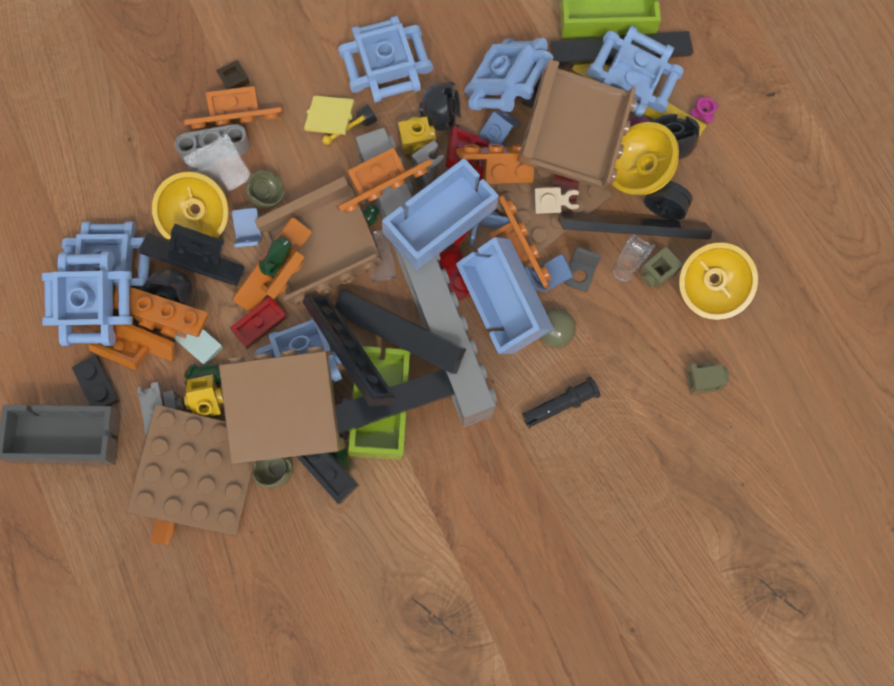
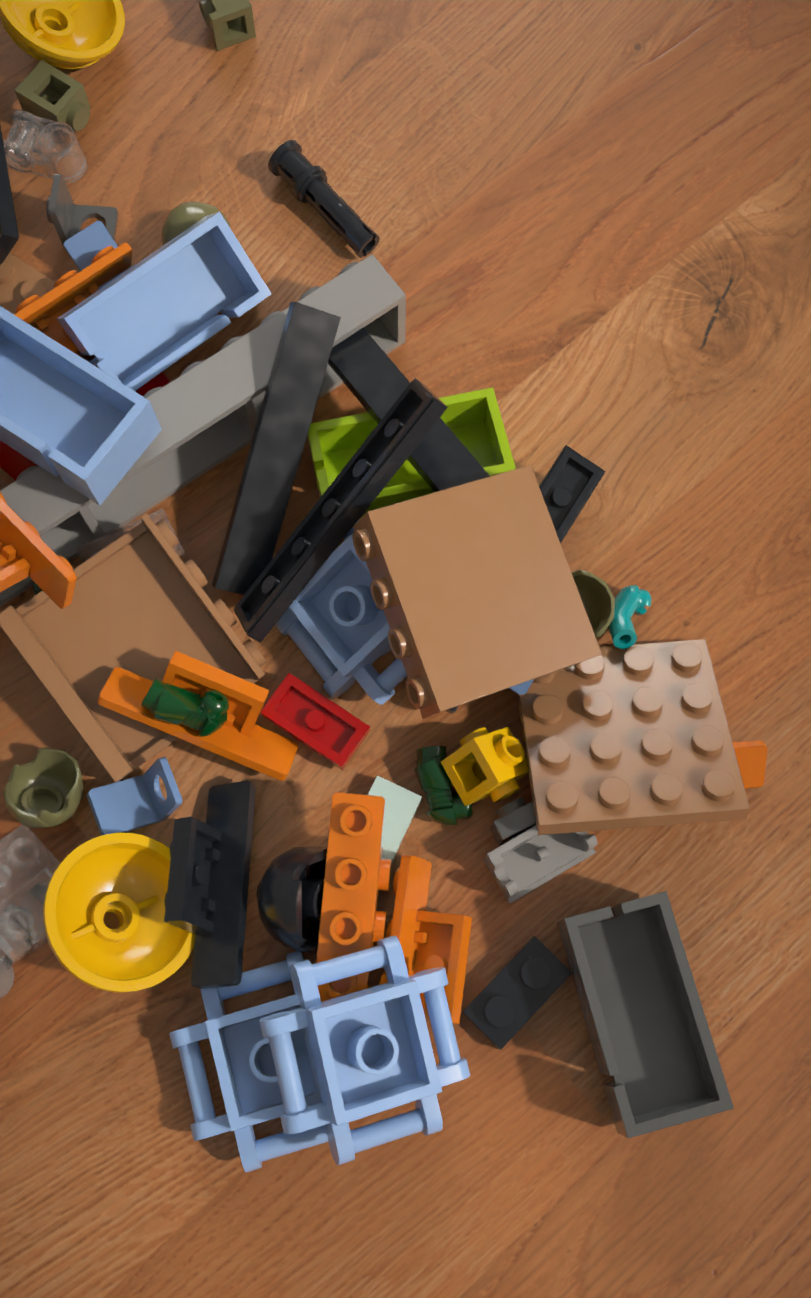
camera: 105 degrees left, 0 degrees up
(270, 501) = (627, 602): none -> teal arm

